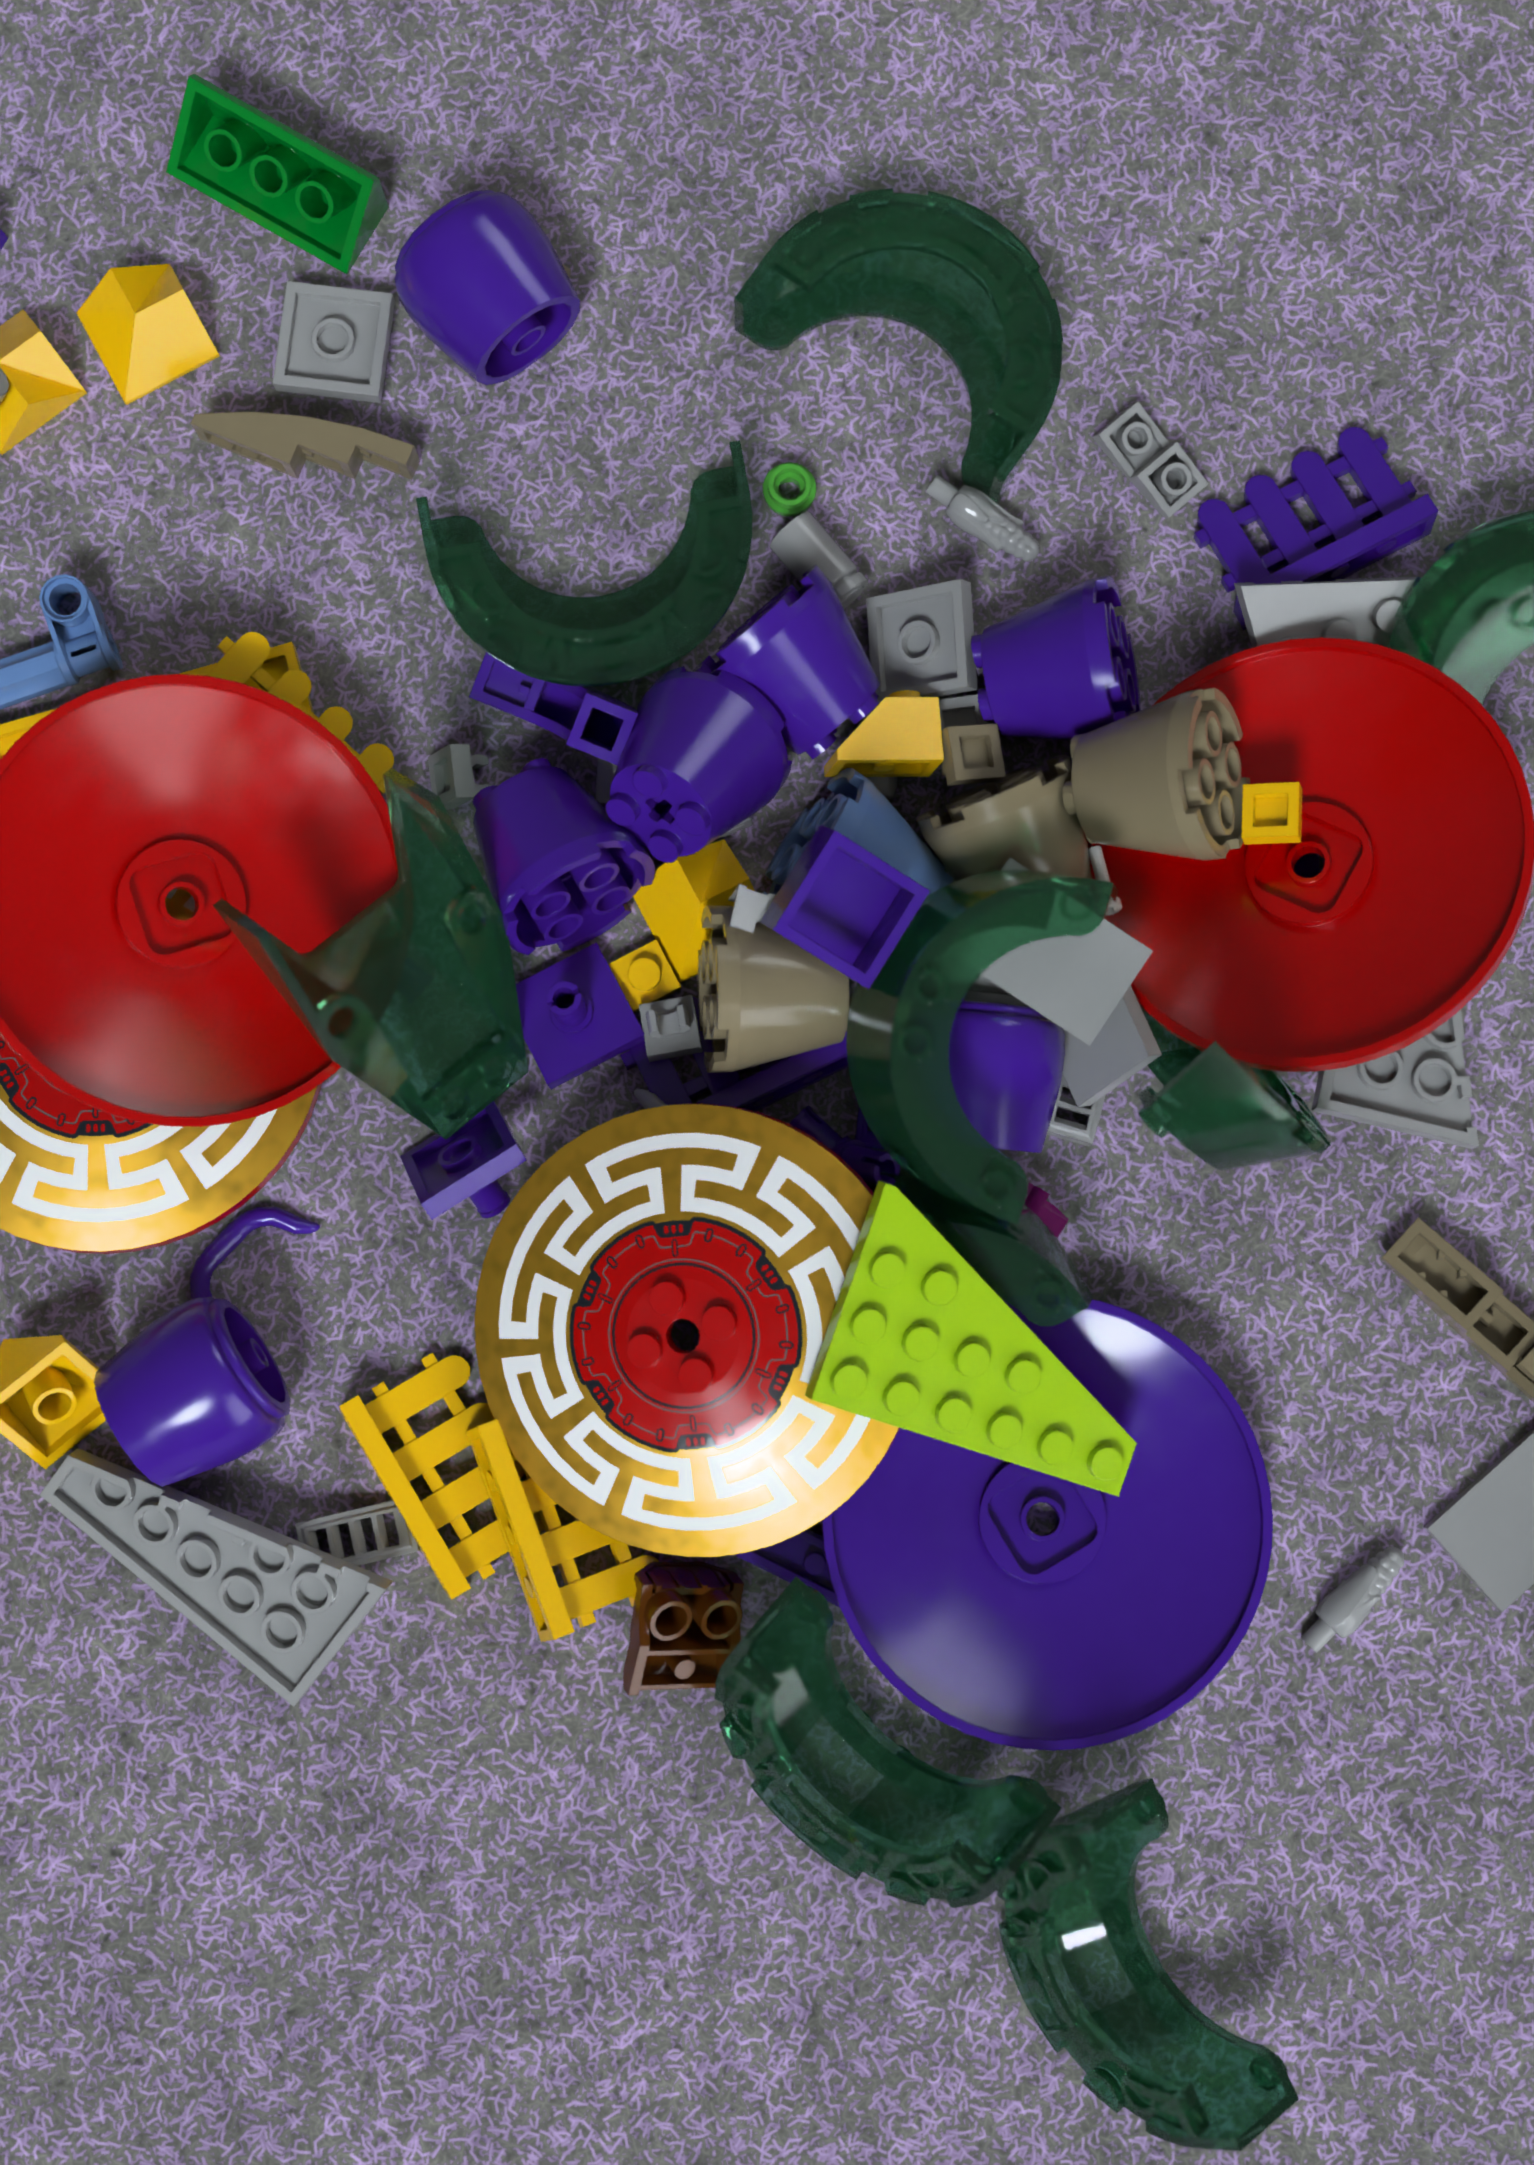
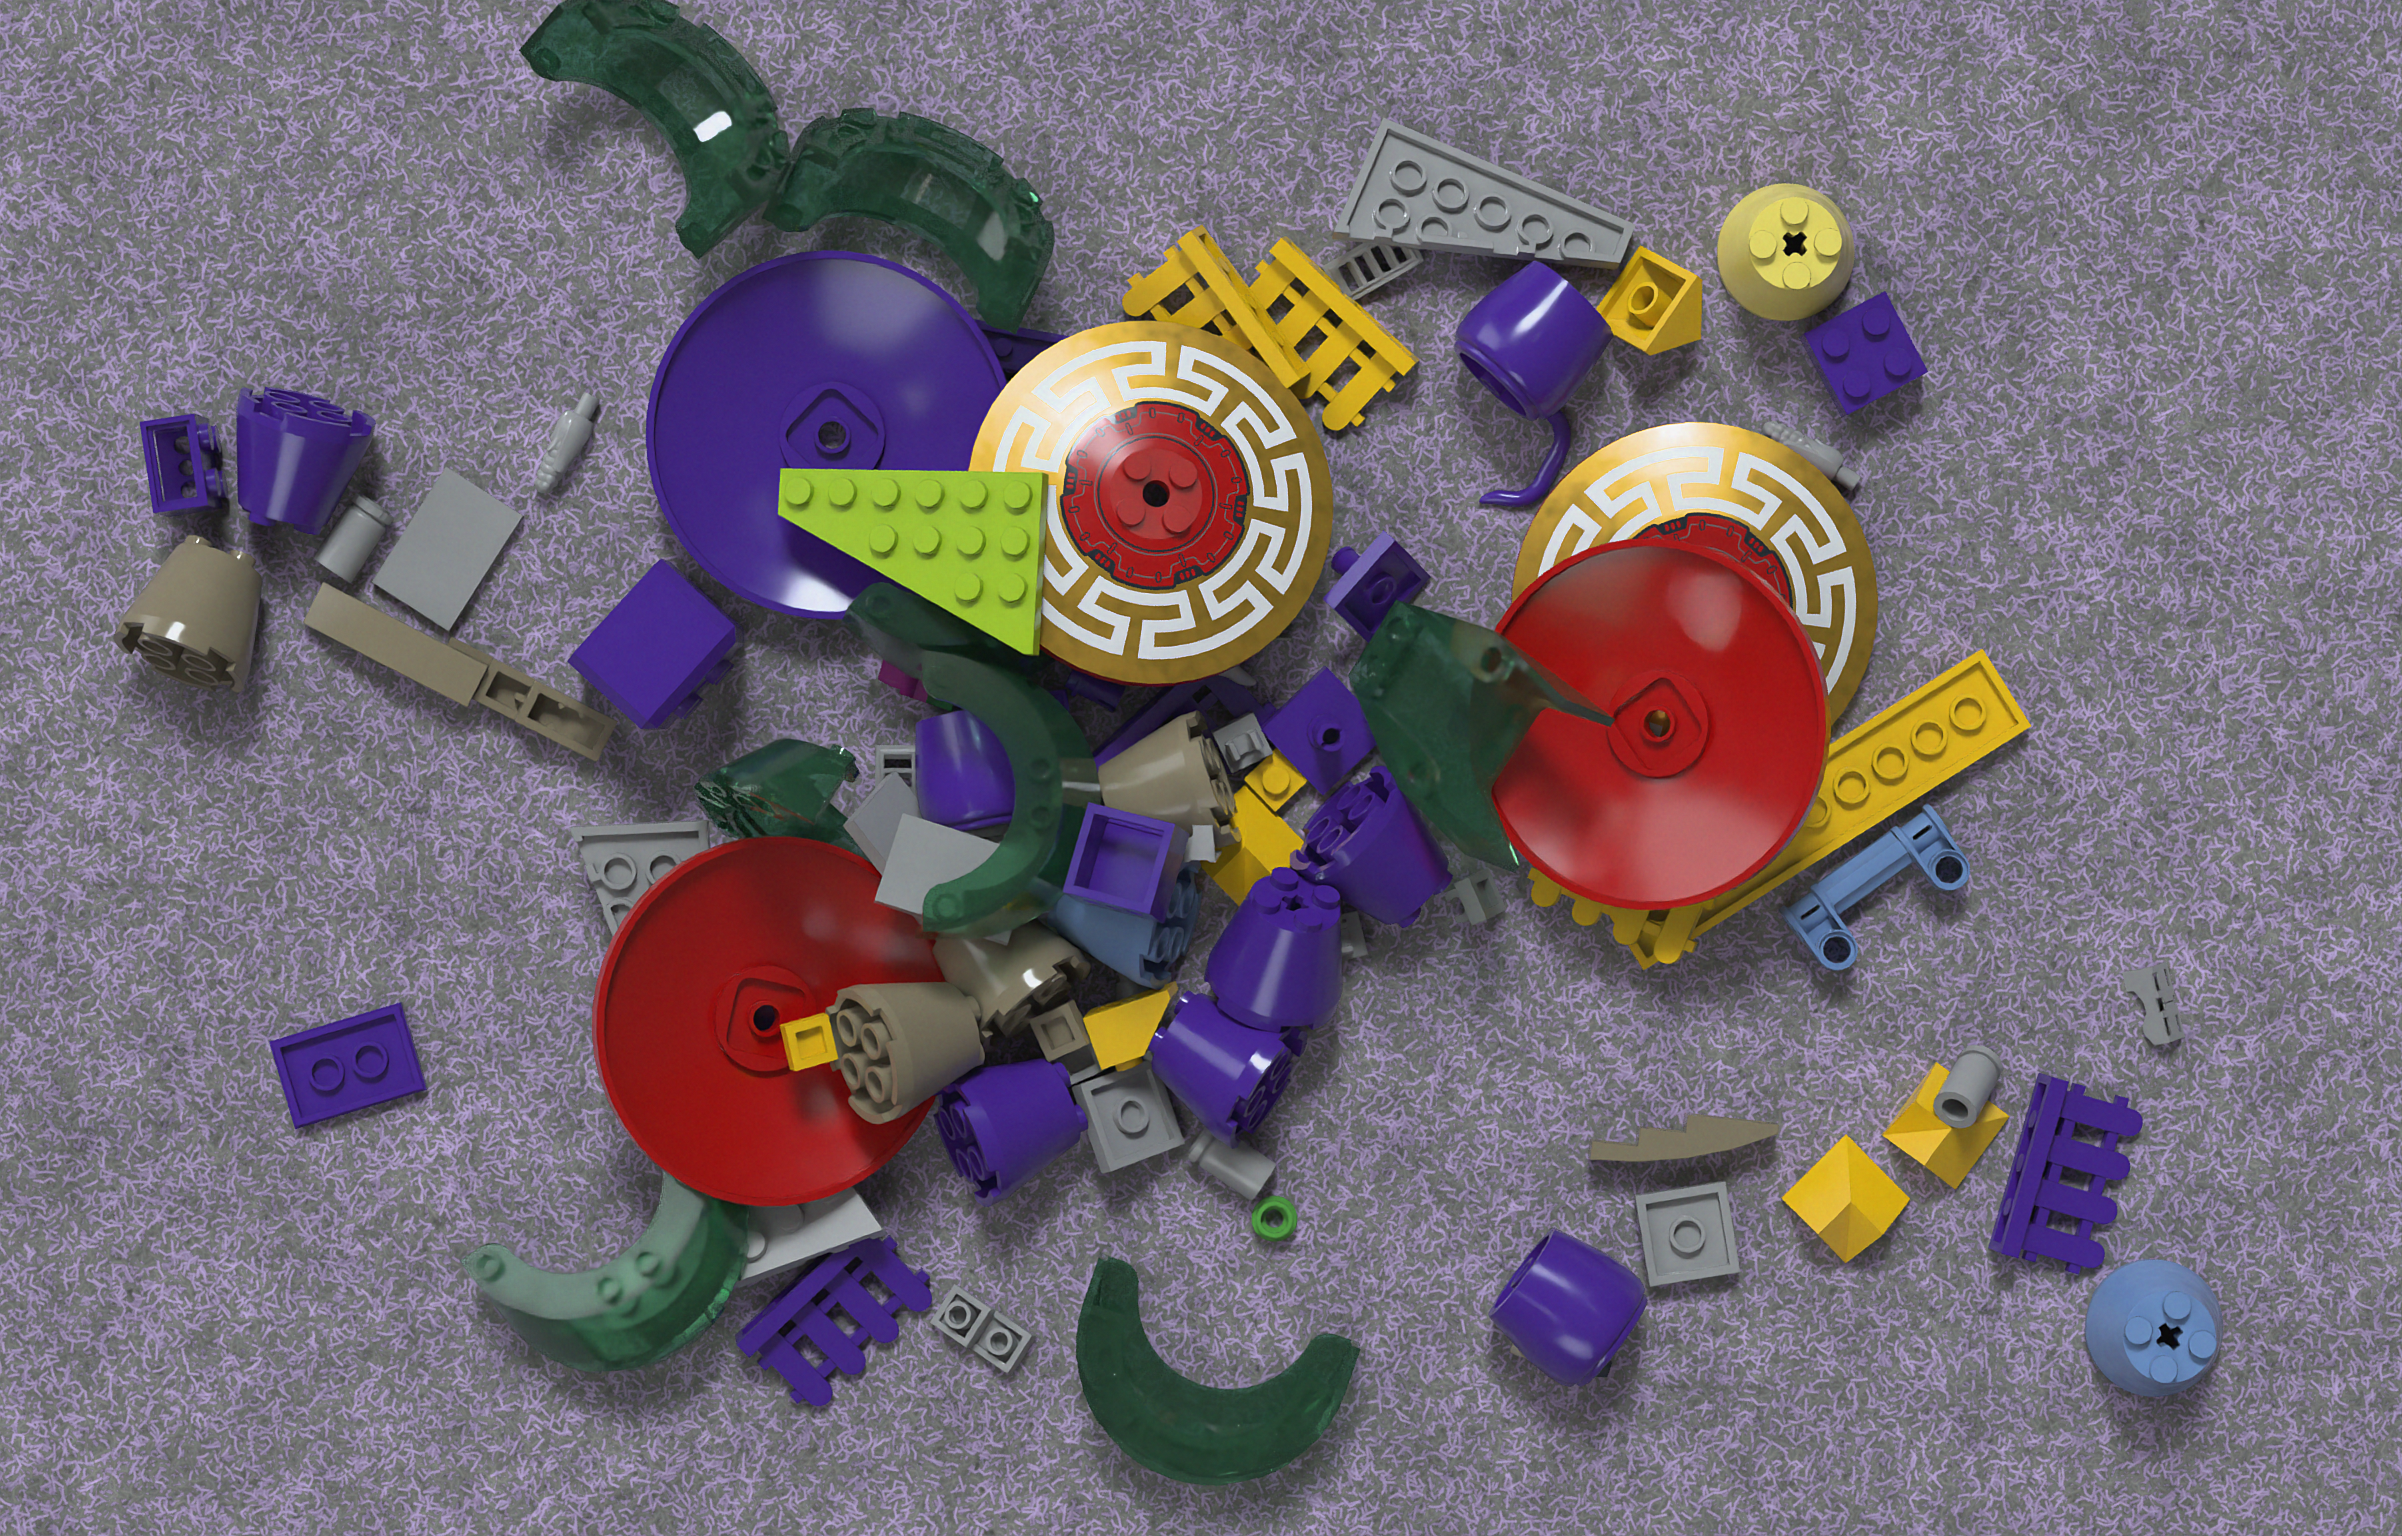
camera: 160 degrees right, 5 degrees up
(274, 175) = (1778, 1356): green slope -> none
(576, 713) = (1389, 977): dark purple arch -> none
(607, 635) = (1389, 1045): clear green windscreen -> none
(682, 1626) = (1094, 269): reddish brown slope -> none
(867, 1161) = (1054, 675): dark purple pin -> none
(984, 519) = (1105, 1237): light grey piece -> none
(1101, 873) = (926, 957): white piece -> none
(1318, 1325) = (660, 649): none -> dark purple plate

